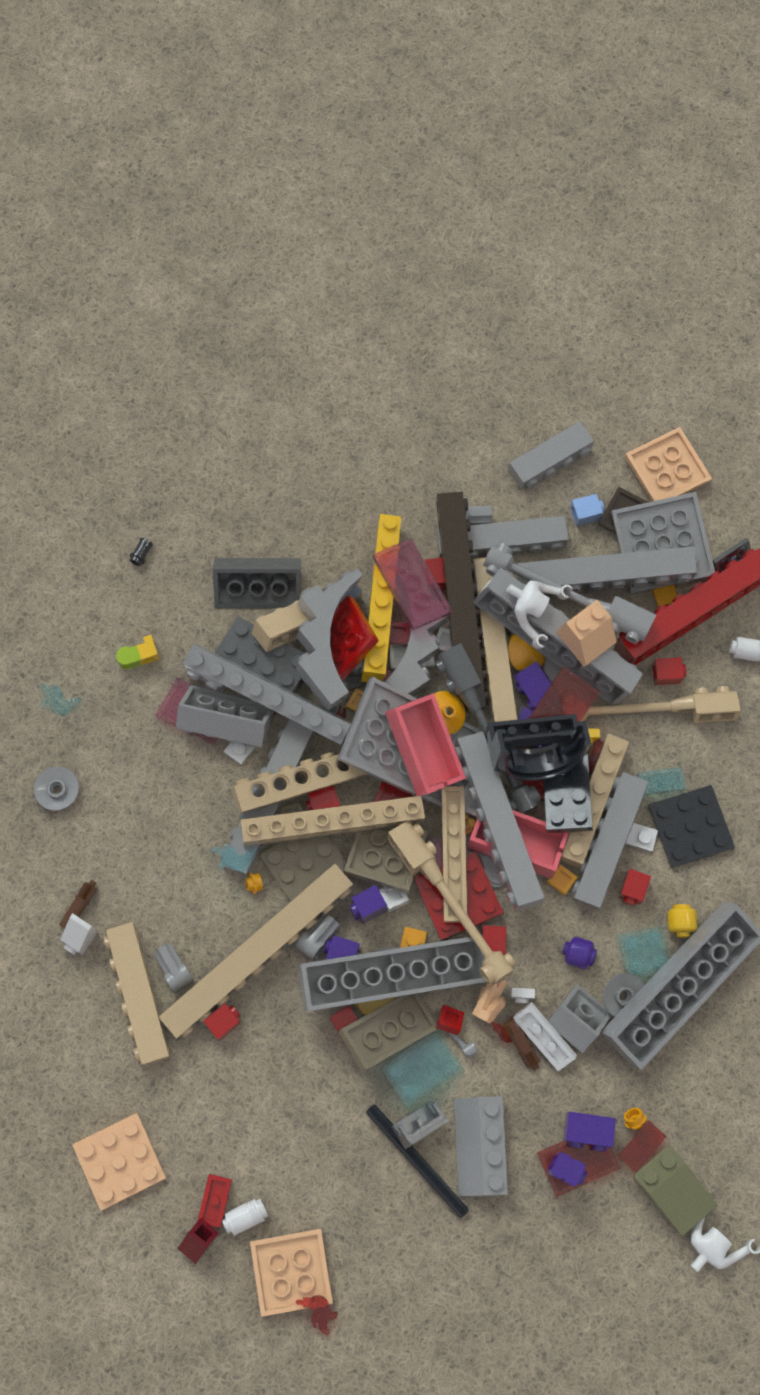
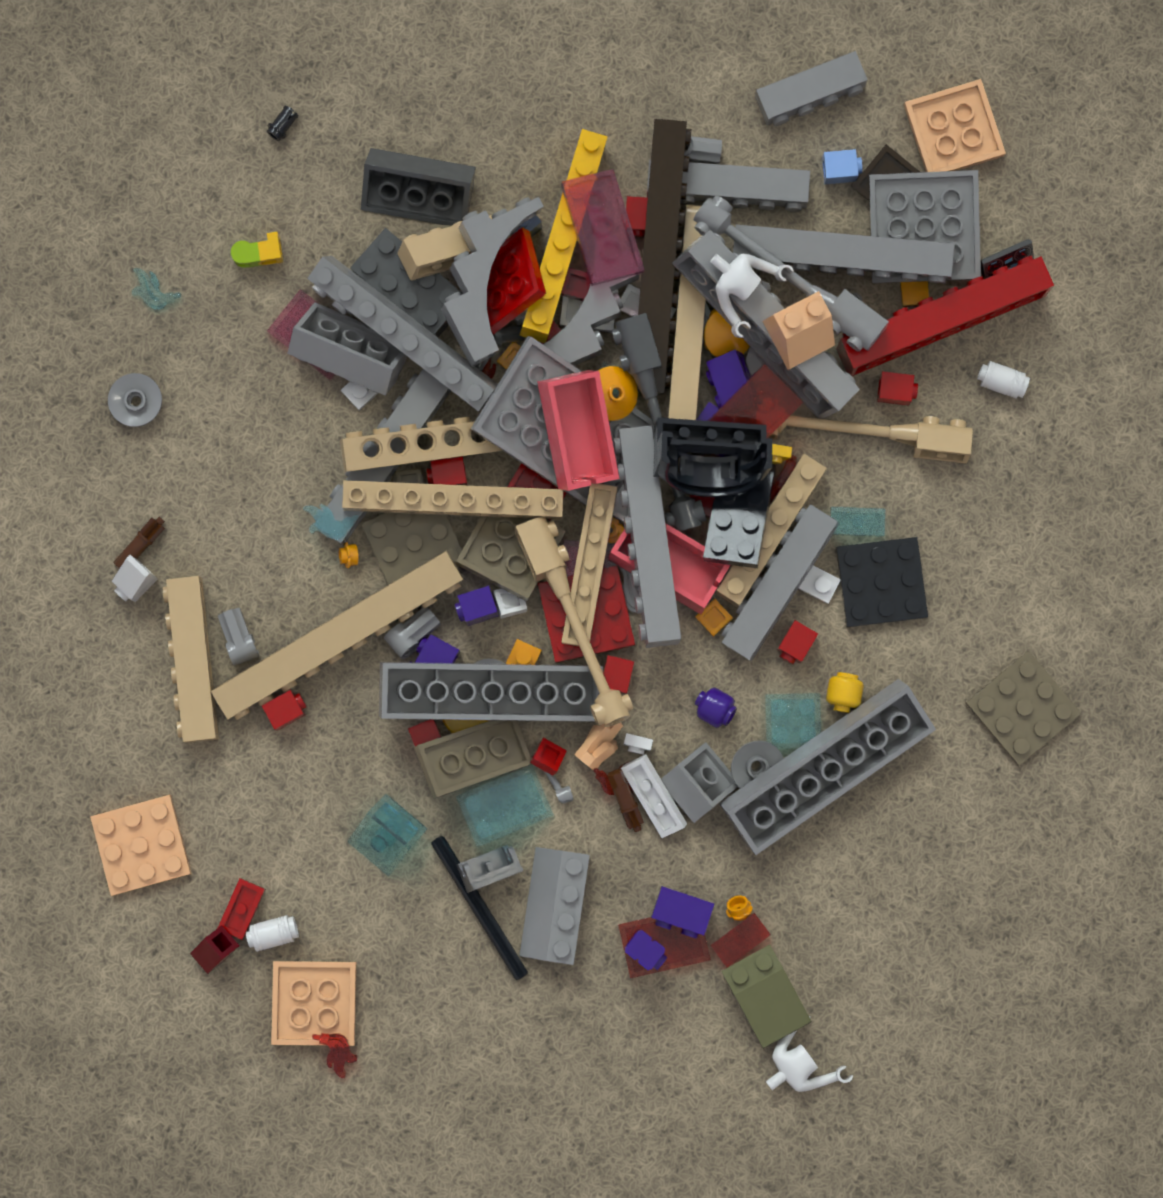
camera: 15 degrees right, 10 degrees up
(327, 1112) = (387, 834): none -> clear light blue slope

